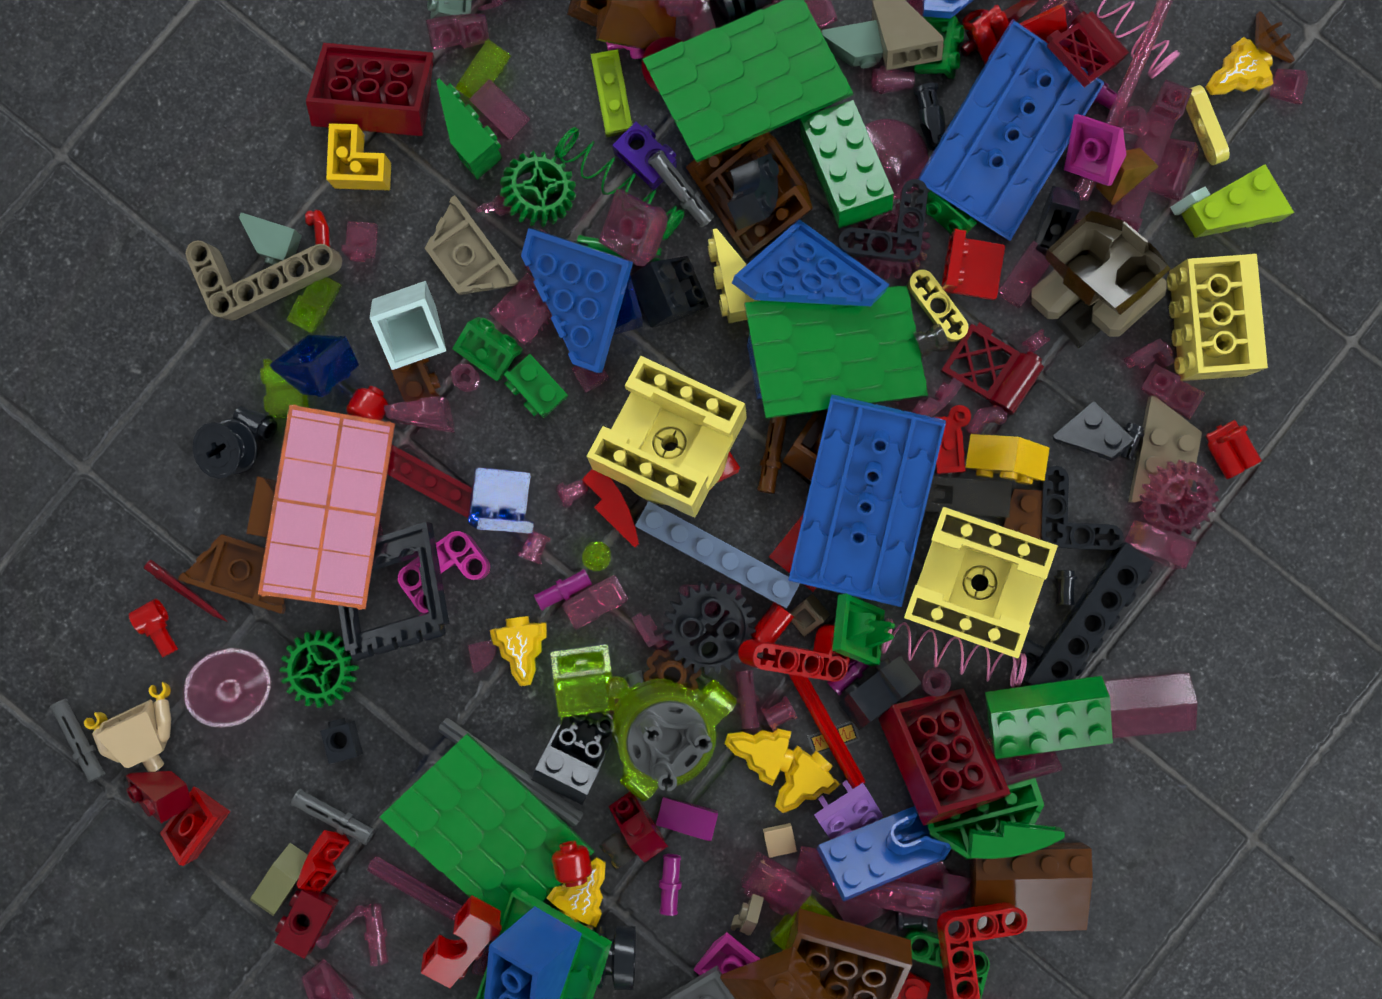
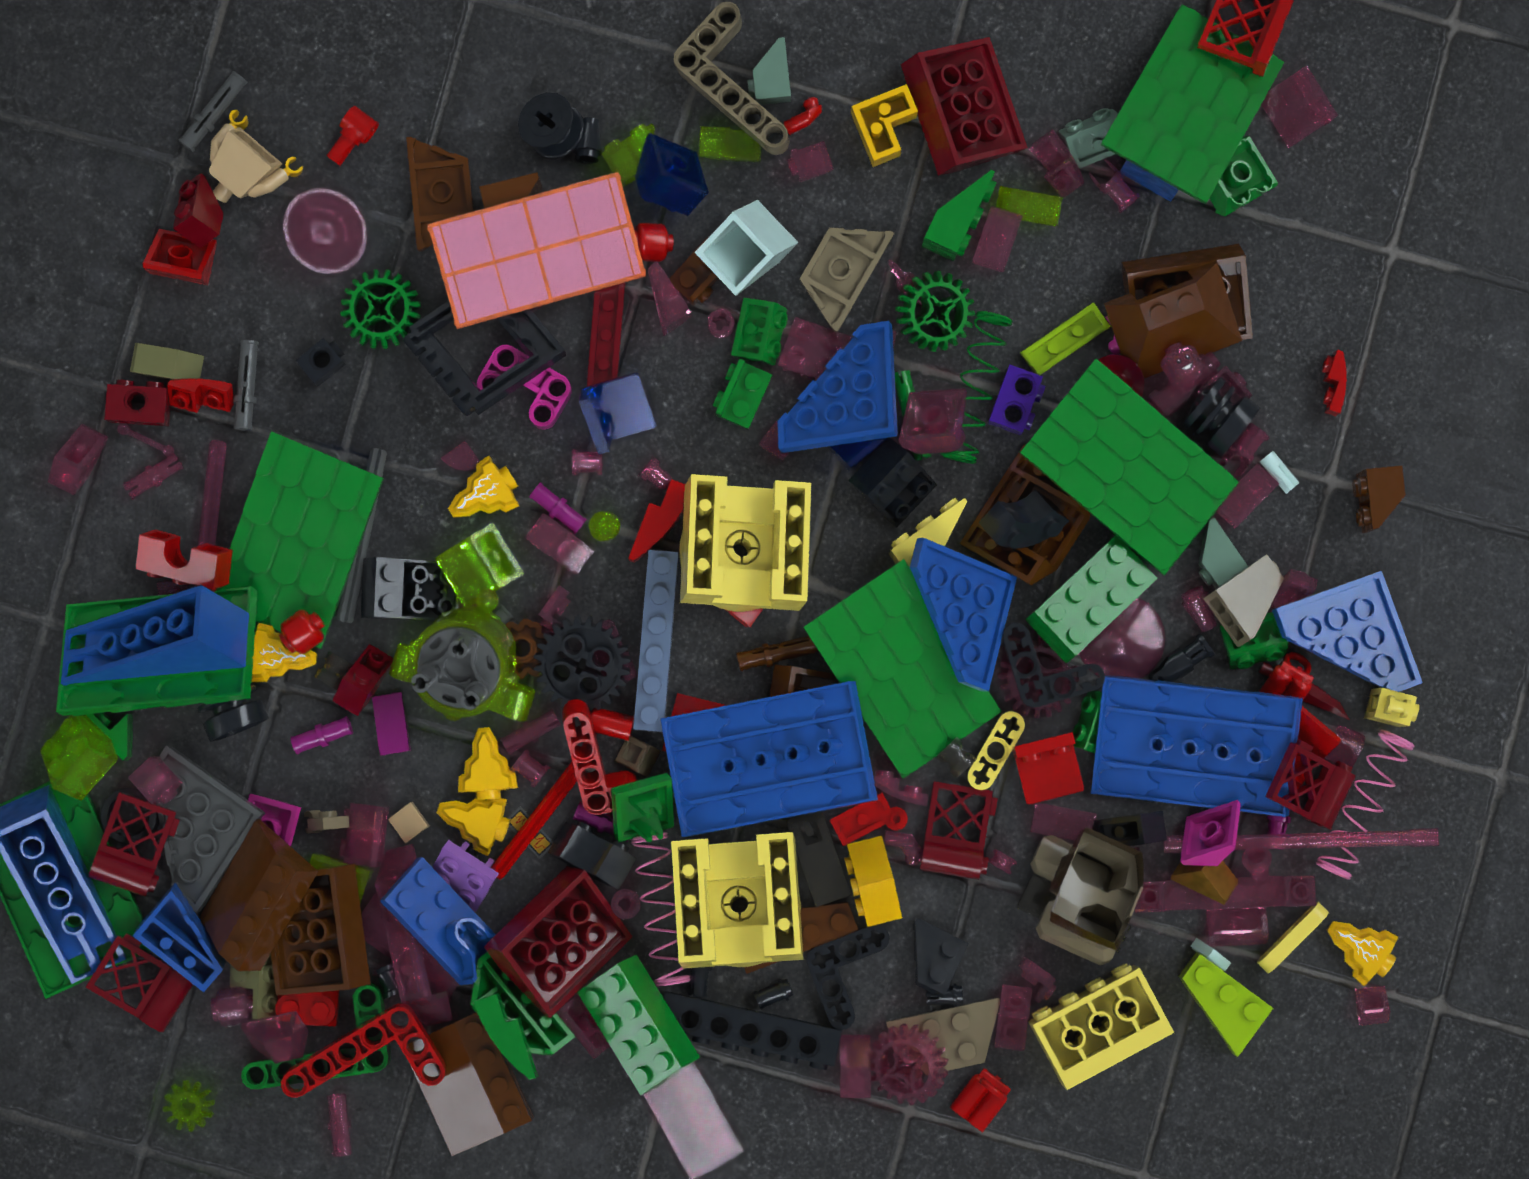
camera: 65 degrees right, 0 degrees up
(163, 575) = (404, 120): dark red bar -> none
(689, 199) = (991, 461): dark grey pin -> none
(1268, 39) = (1406, 963): reddish brown piece -> none

